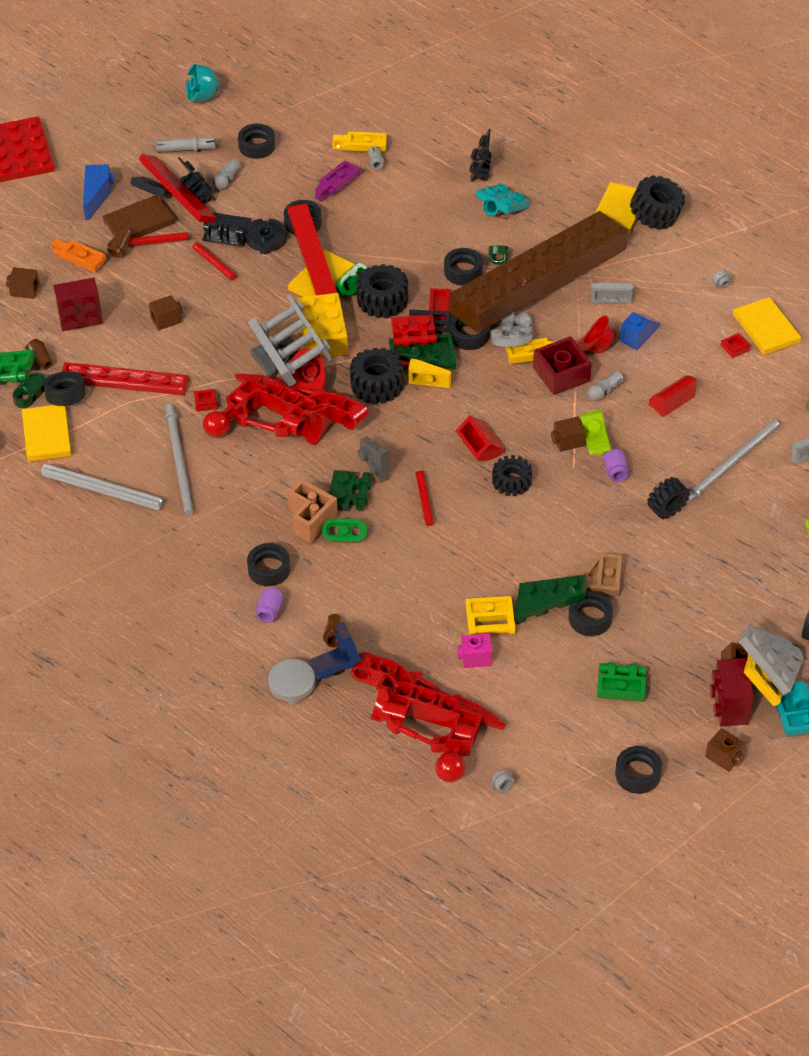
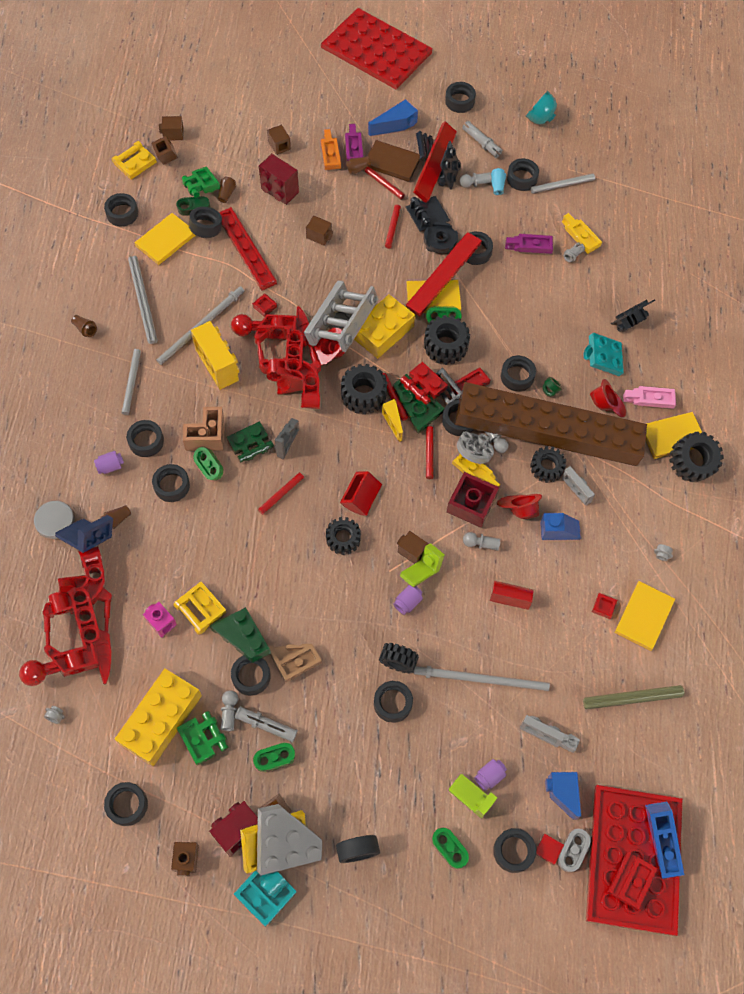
camera: 50 degrees right, 15 degrees up
(86, 546) = (85, 326): none -> reddish brown cone
(89, 233) = (353, 143): none -> magenta hinge
(120, 121) = (460, 88): none -> black tyre
(189, 544) = (131, 382): none -> light grey bar
(234, 458) = (215, 354): none -> yellow brick
(246, 161) = (498, 180): none -> medium azure cone
(292, 123) = (558, 184): none -> light grey bar
(337, 556) = (164, 471): none -> black tyre
(483, 372) = (429, 452): none -> red bar
(544, 226) = (607, 399): none -> red piece
(571, 198) = (651, 397): none -> bright pink hinge
(572, 309) = (552, 455): none -> black tyre
(575, 700) = (158, 716): none -> yellow brick
(601, 641) = (229, 699): none -> light grey pin
(640, 632) = (243, 714): none -> light grey pin
(683, 641) = (274, 757): none -> green plate
(702, 516) = (393, 685): none -> black tyre

